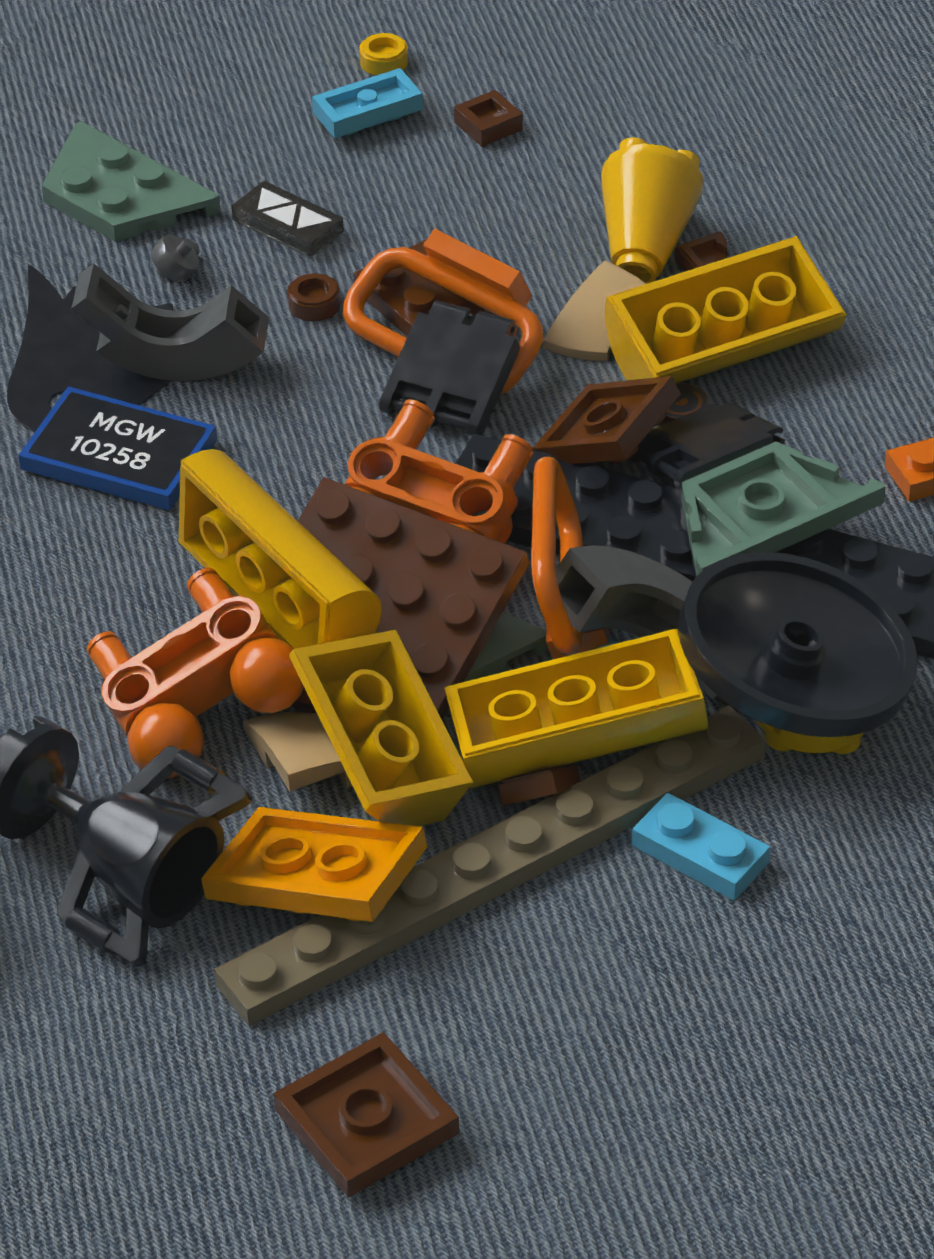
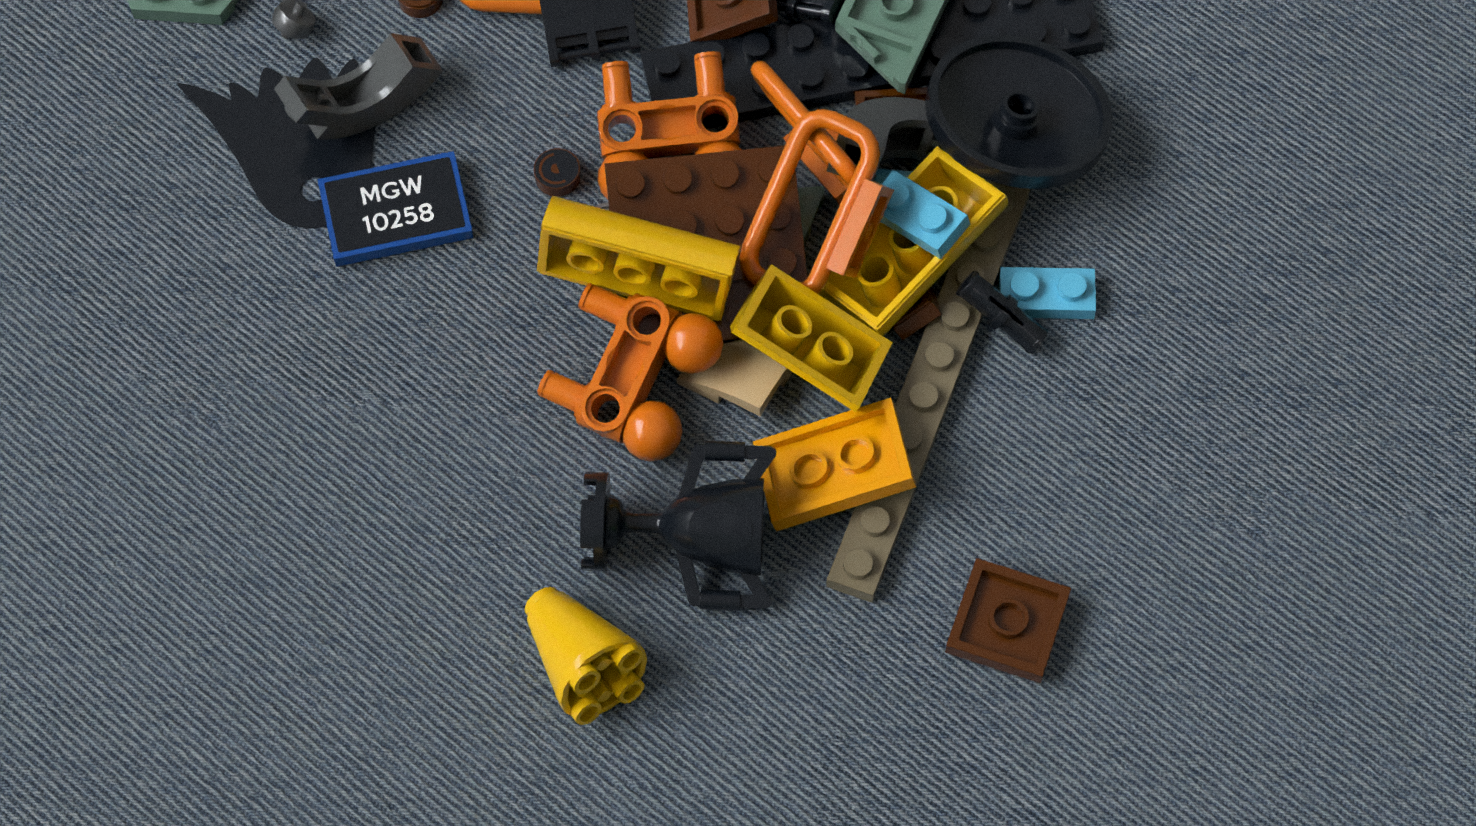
camera: 35 degrees left, 20 degrees up
(295, 488) = (557, 172): none -> black tile
(524, 630) = (855, 218): none -> orange bar
(595, 671) = (922, 216): none -> medium azure plate
(611, 788) = (1002, 312): none -> black pin

